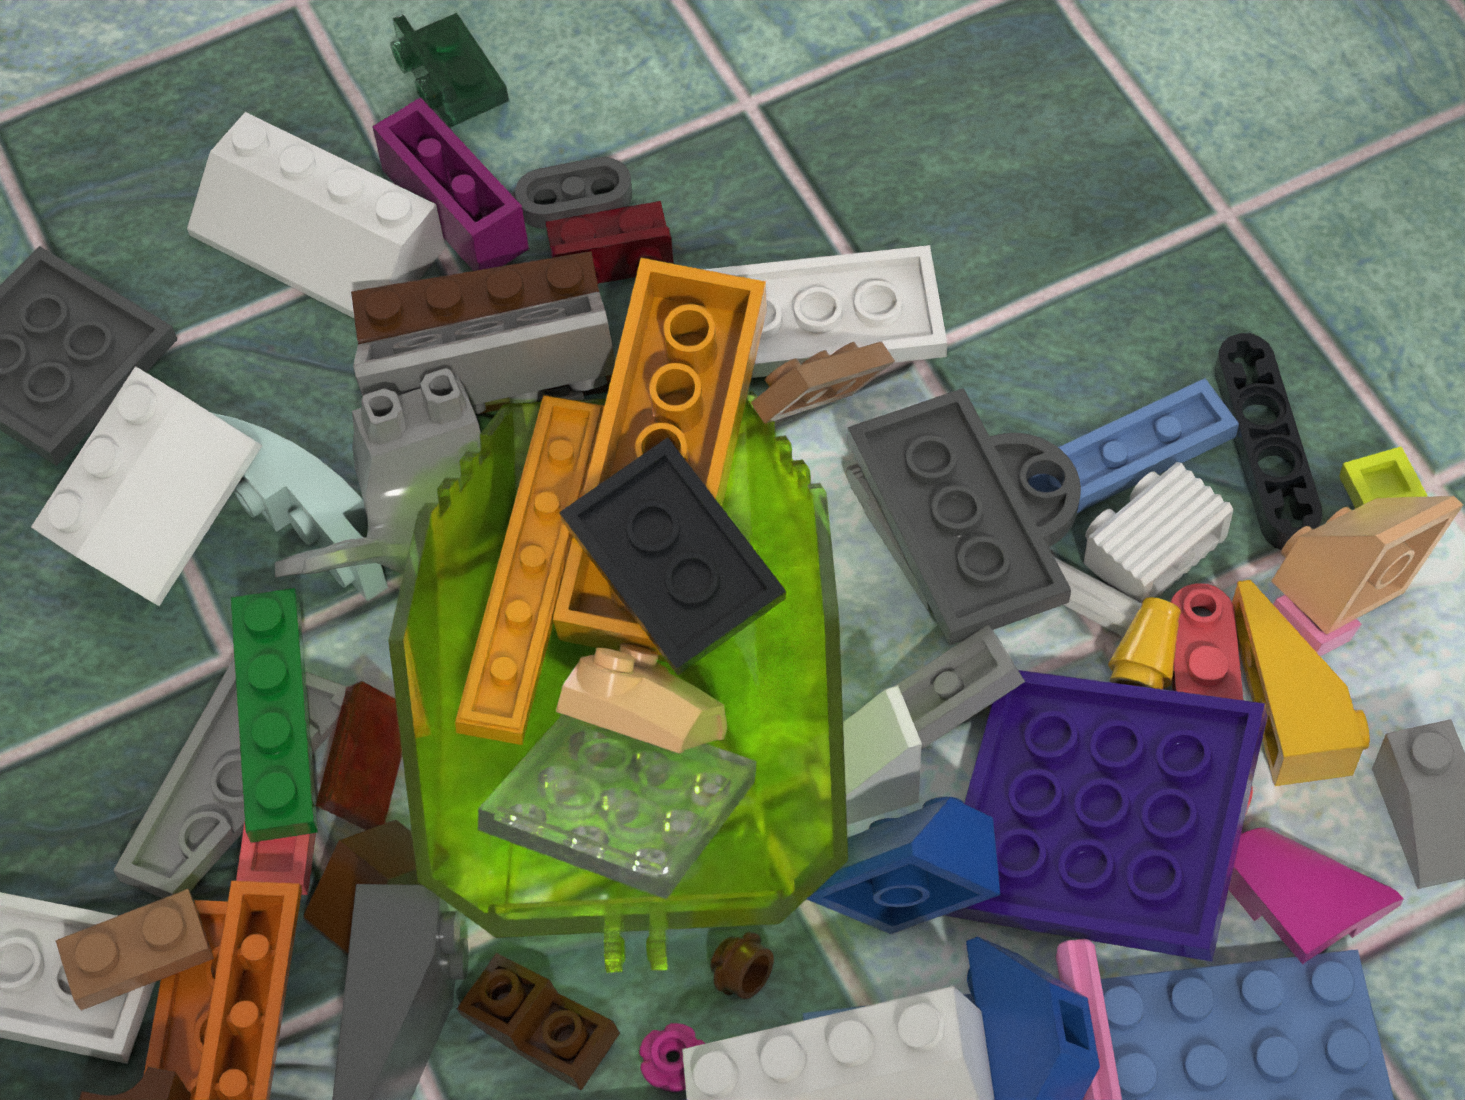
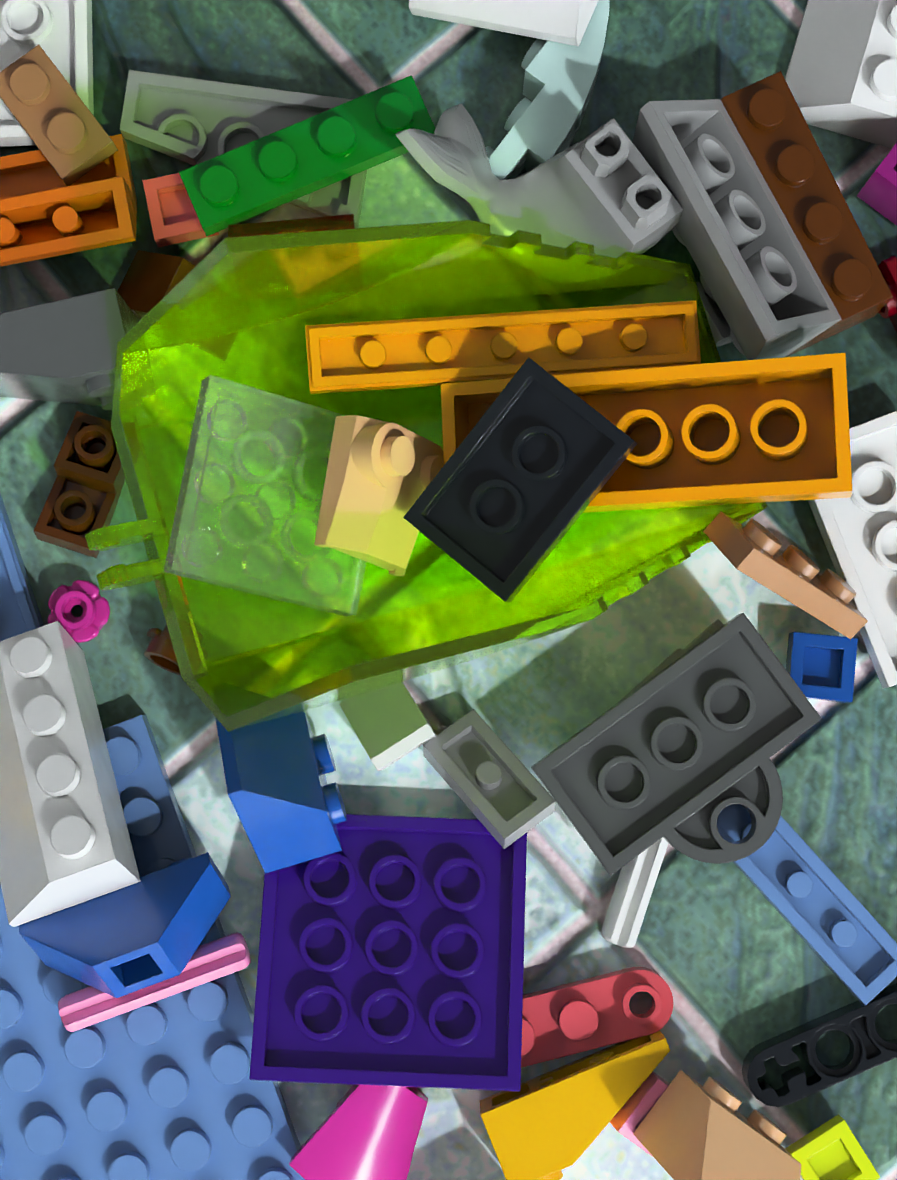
camera: 75 degrees right, 25 degrees up
(911, 384) = (822, 665): none -> blue plate
(1148, 646) = (579, 958): yellow cone -> none
(1157, 534) = (714, 945): white brick -> none

